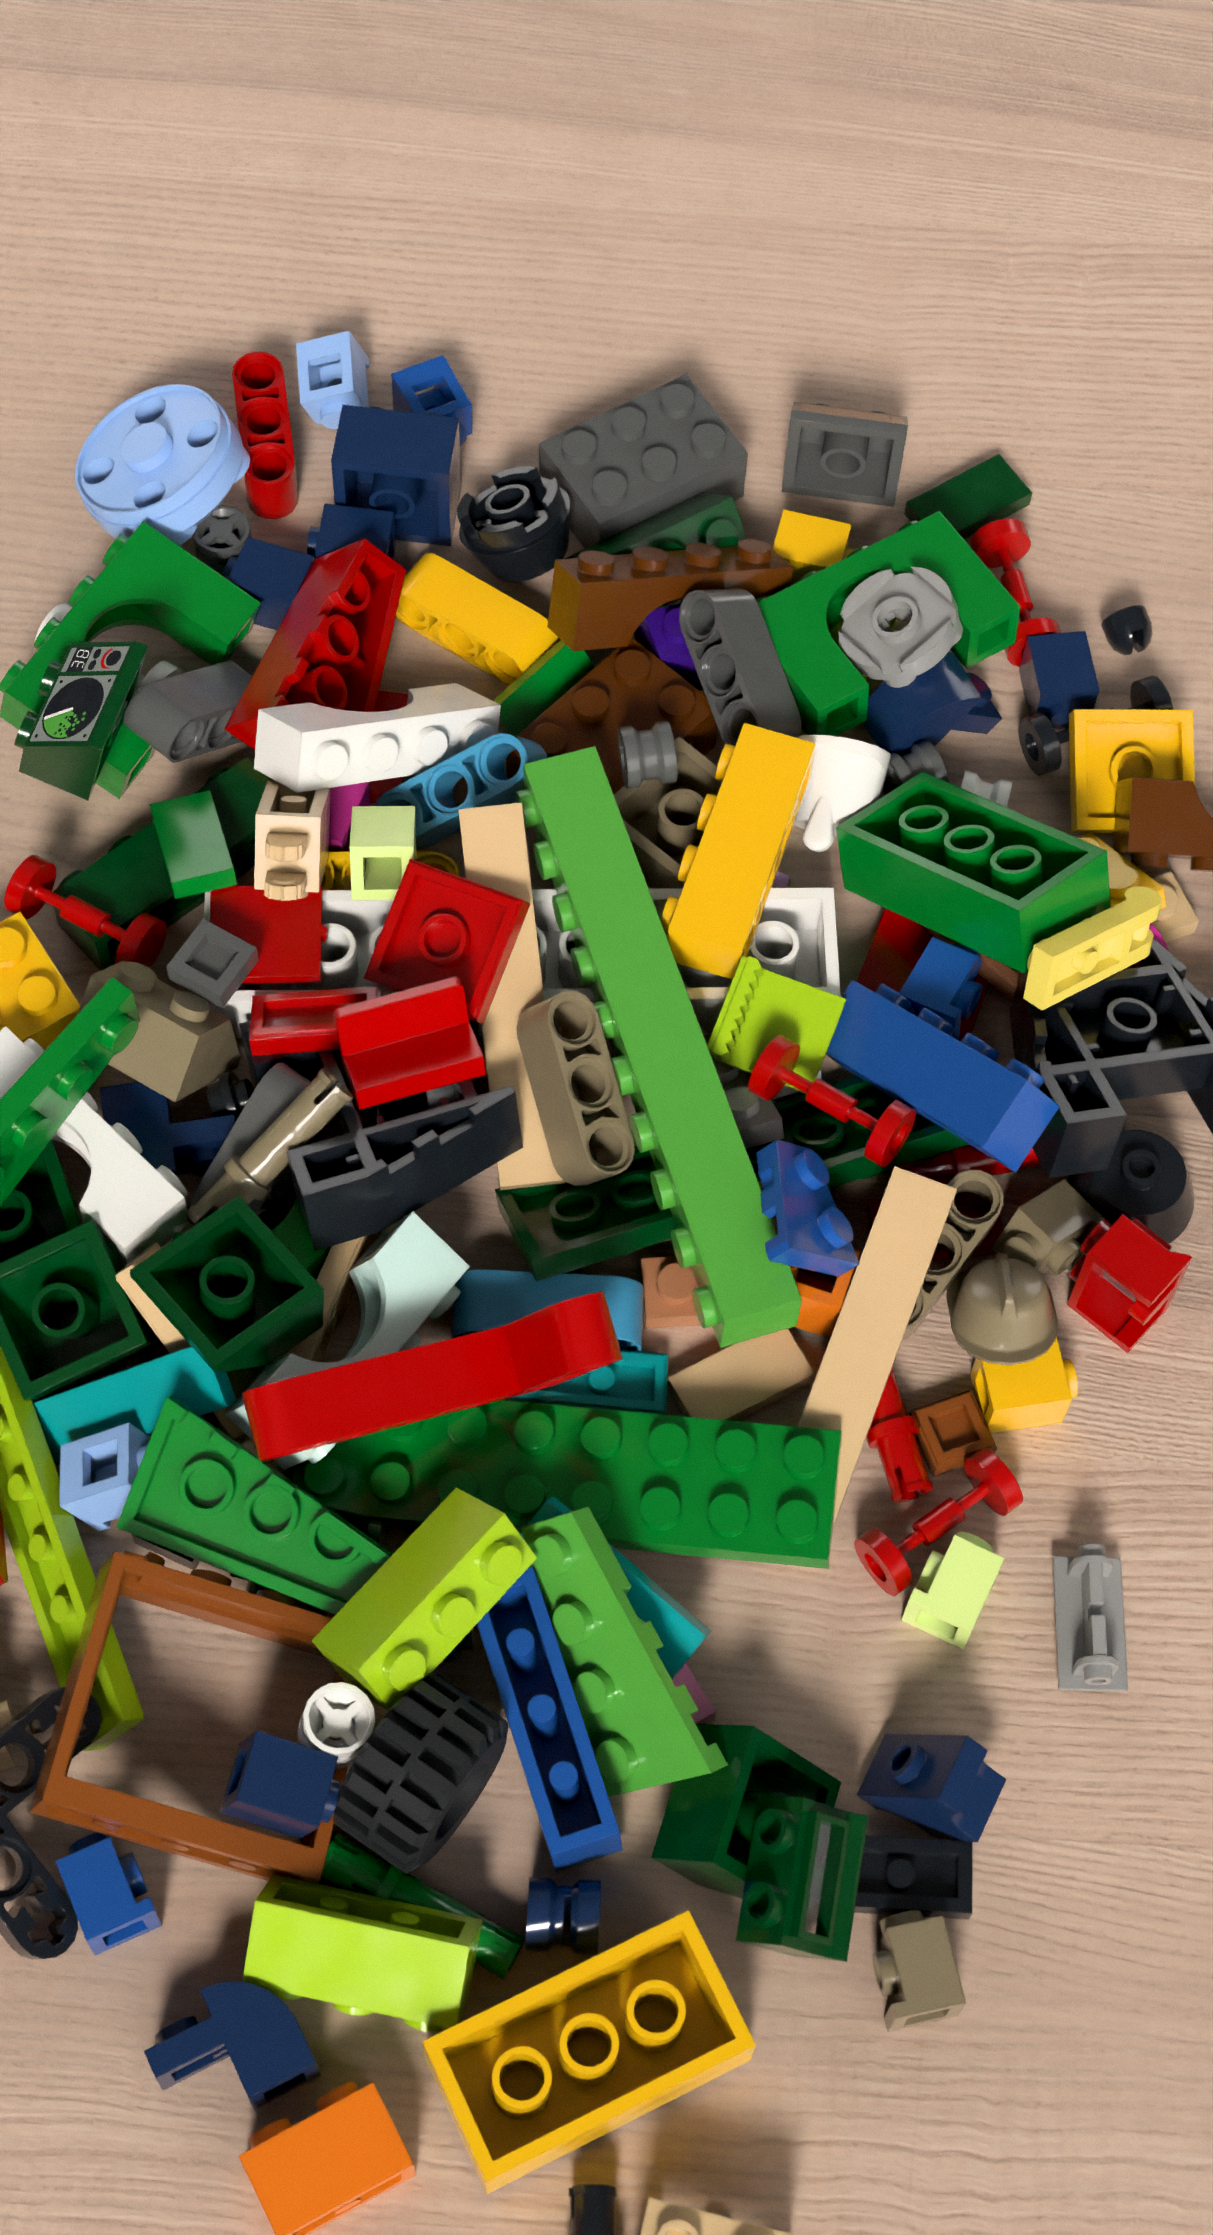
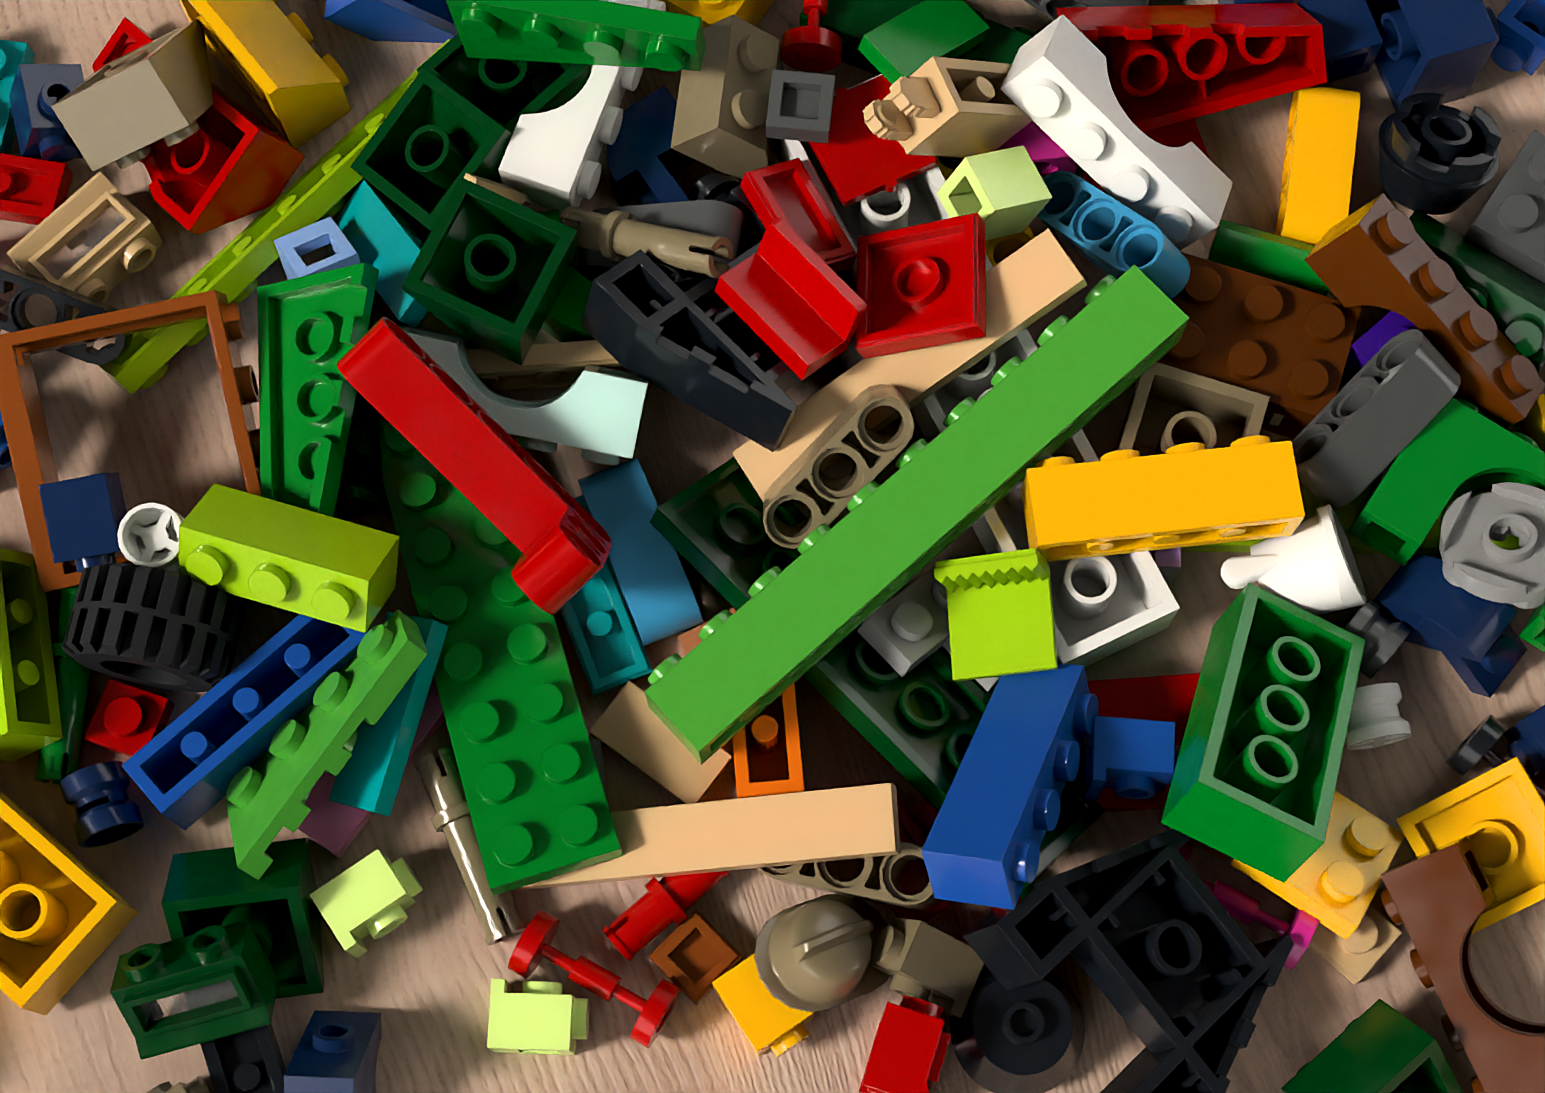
camera: 70 degrees right, 10 degrees up
(483, 1864) = (127, 718): none -> red plate
(647, 754) = (1219, 372): dark grey wheel -> none
(762, 1583) = (455, 821): none -> dark tan pin
(776, 1069) = (948, 634): red wheel -> none
(778, 1692) = (367, 900): none -> yellowish green brick
(808, 1223) = (798, 715): blue wing -> none
(1092, 949) = (1227, 879): light yellow plate -> none

